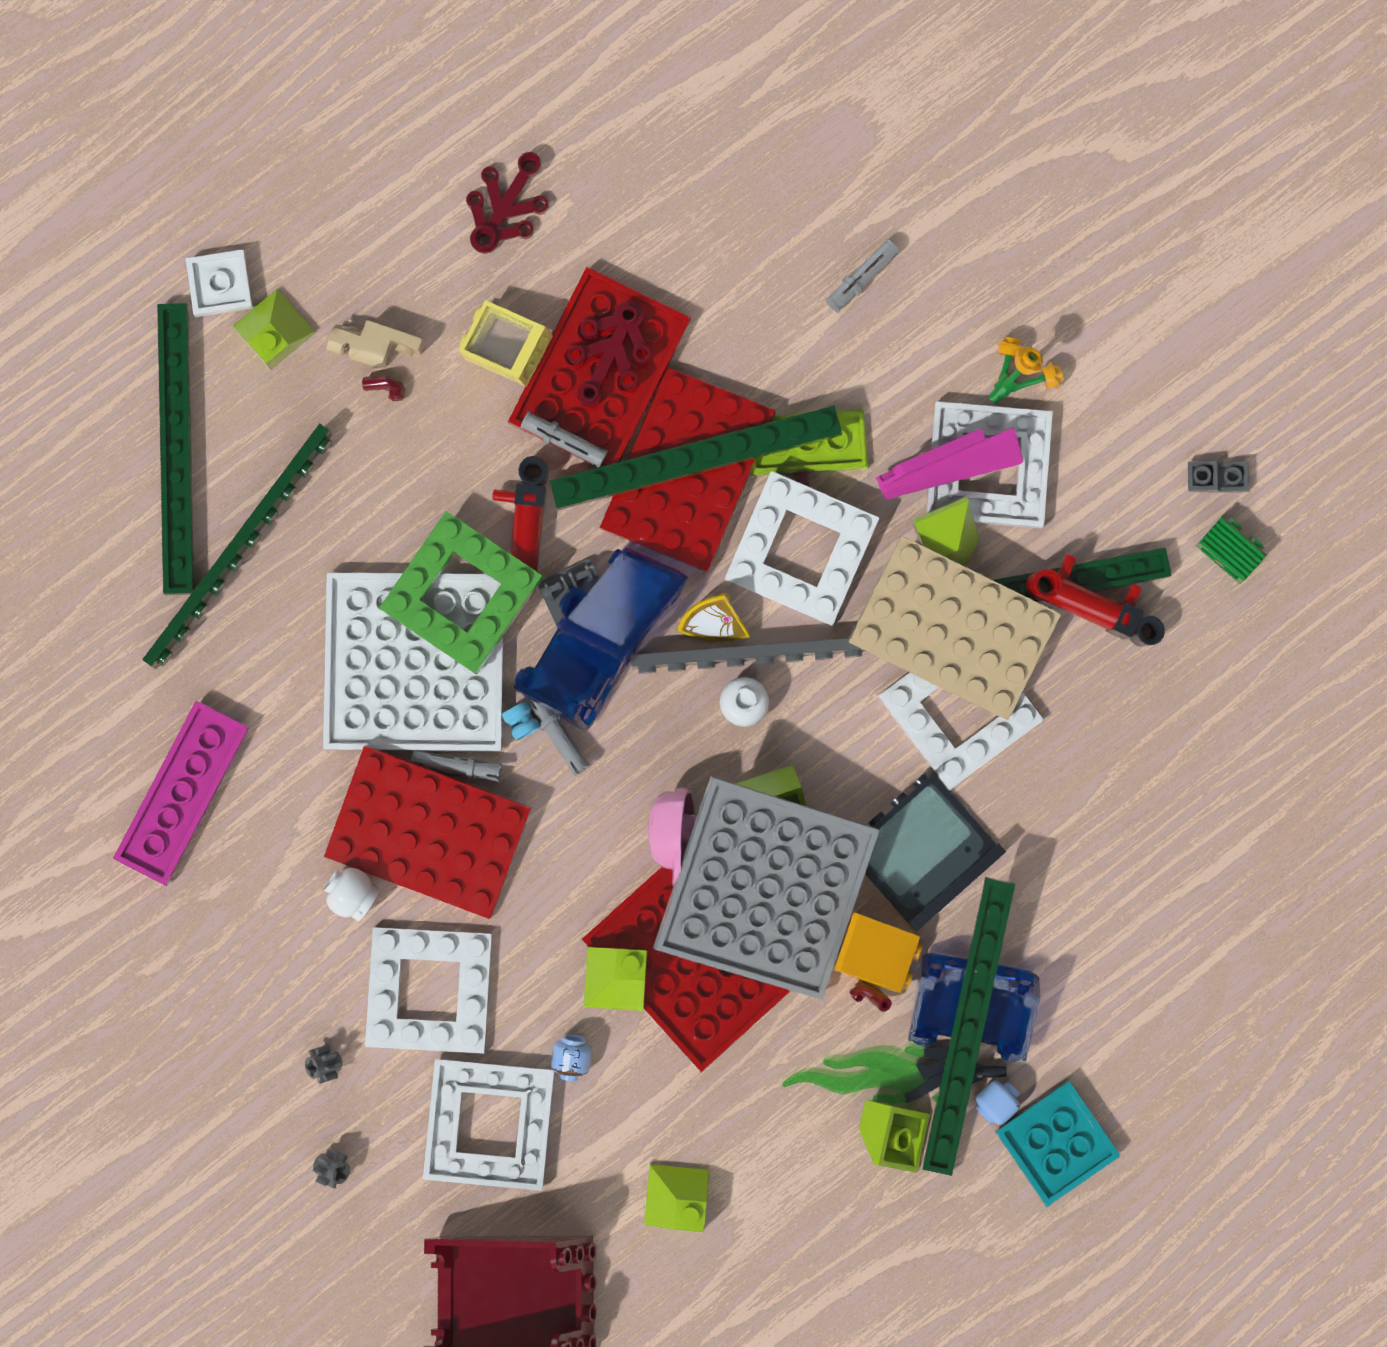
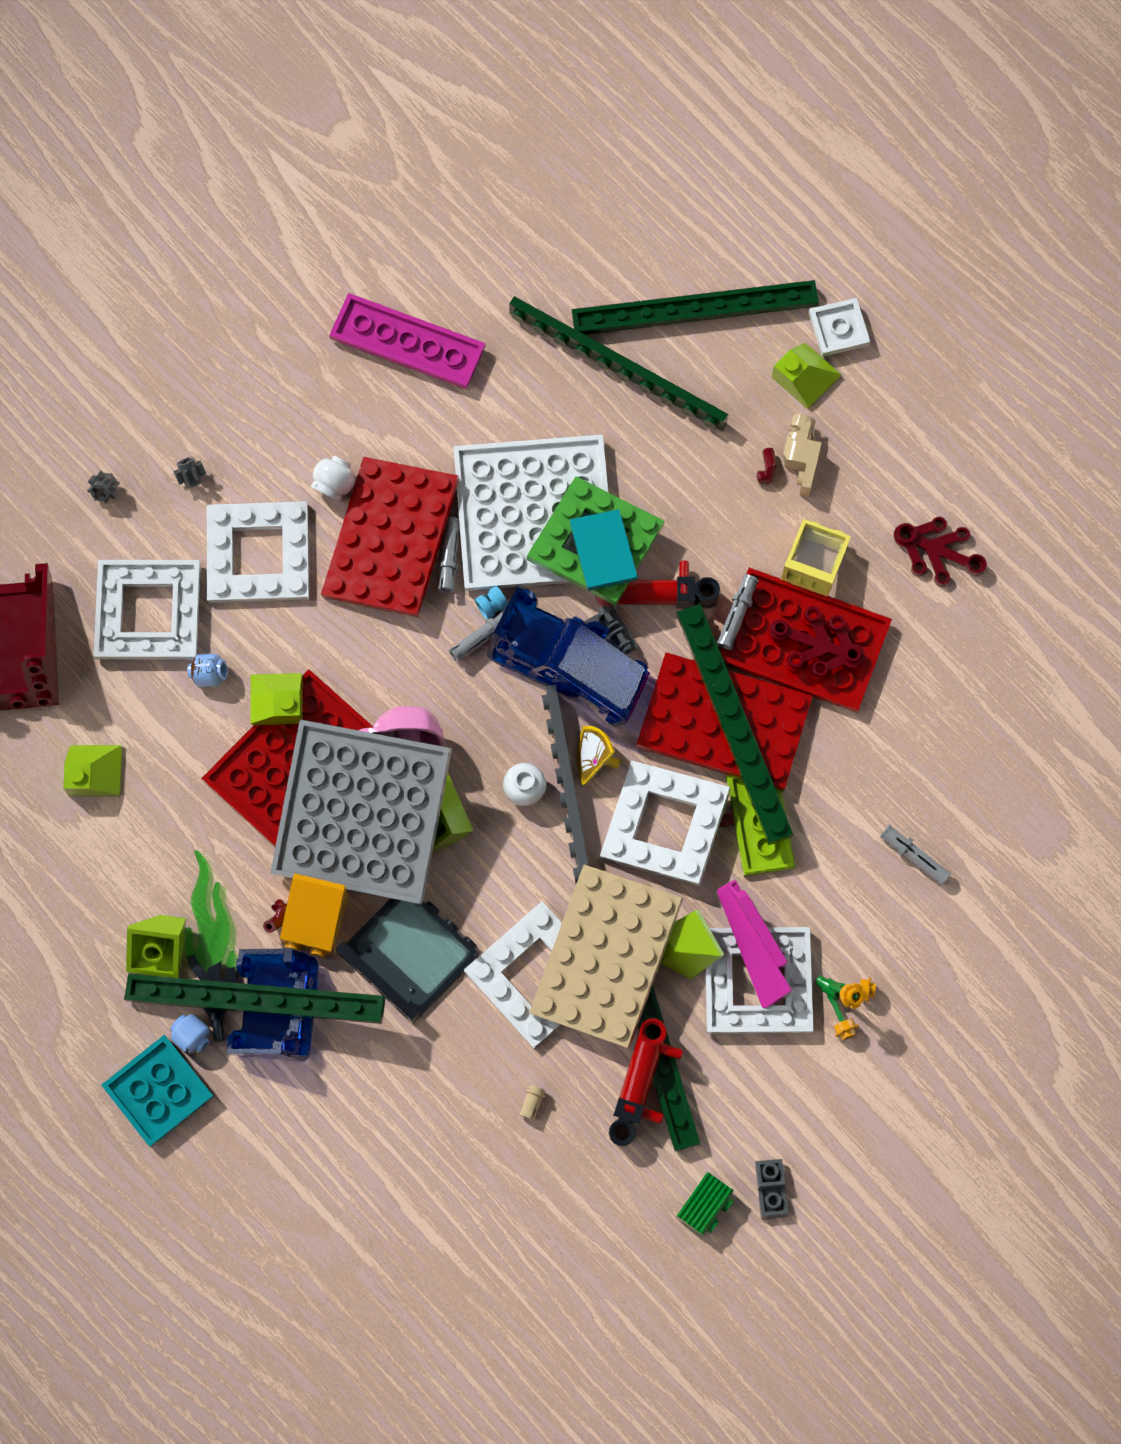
camera: 85 degrees right, 10 degrees down
(479, 583) = (603, 550): none -> teal tile
(1104, 727) = (532, 1102): none -> tan pin

